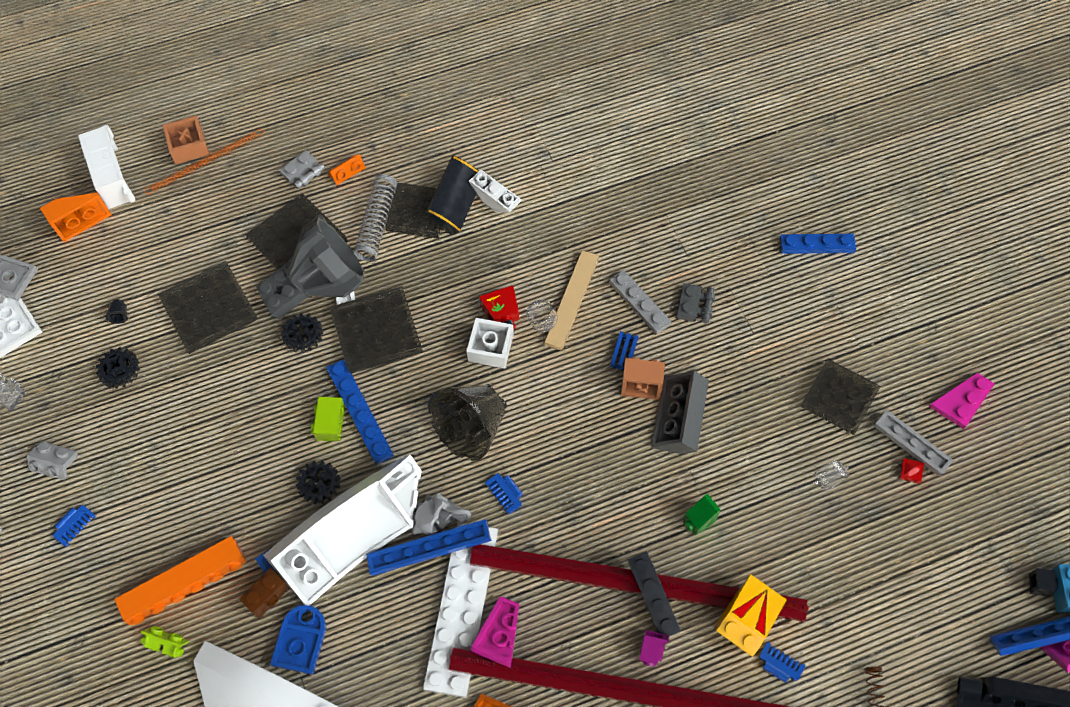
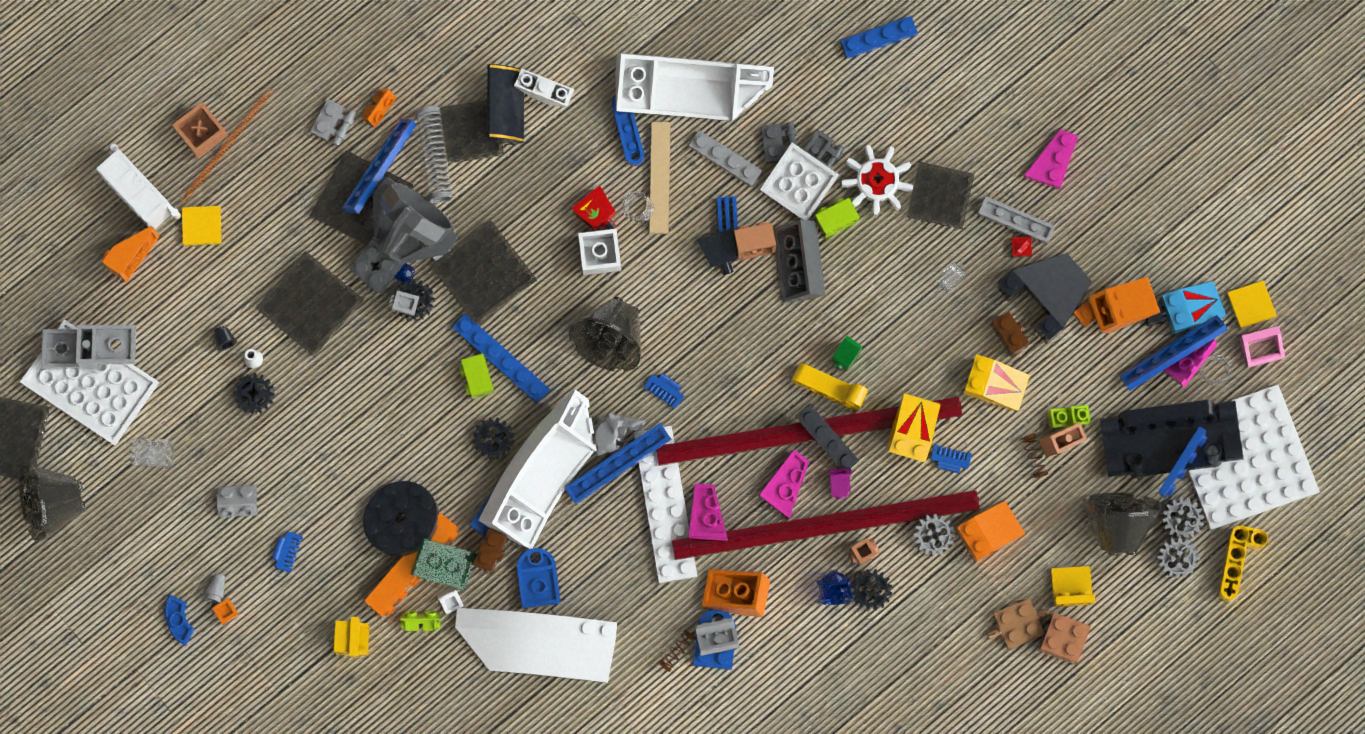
camera: 20 degrees left, 15 degrees up
(84, 634) = (351, 638): none -> yellow plate
(133, 336) = (253, 362): none -> white cone
(150, 216) = (201, 225): none -> yellow tile
(184, 548) = (382, 513): none -> black plate
(203, 630) = (449, 600): none -> white slope
(209, 588) = (443, 563): none -> clear green plate
(287, 327) = (404, 303): none -> light grey bracket
(304, 306) = (406, 273): none -> clear blue tile
(328, 207) = (379, 165): none -> blue plate
(558, 250) = (629, 135): none -> blue plate
(594, 629) = (785, 484): none -> dark pink wing
(606, 377) = (720, 250): none -> black torso
(627, 228) = (688, 86): none -> white slope
(688, 557) = (830, 387): none -> yellow beam
(704, 340) = (799, 182): none -> white plate
(727, 320) = (820, 145): none -> dark grey plate
(730, 384) = (837, 217): none -> lime brick
(780, 373) = (888, 179): none -> white gear
(851, 598) = (996, 383): none -> yellow slope
(880, 552) = (1010, 334): none -> reddish brown brick
(912, 685) = (1062, 439): none -> nougat slope
(924, 663) = (1068, 416): none -> lime slope
(938, 518) = (1054, 285): none -> black wedge
(966, 559) = (1085, 314): none -> orange plate
(1014, 561) = (1124, 305): none -> orange slope

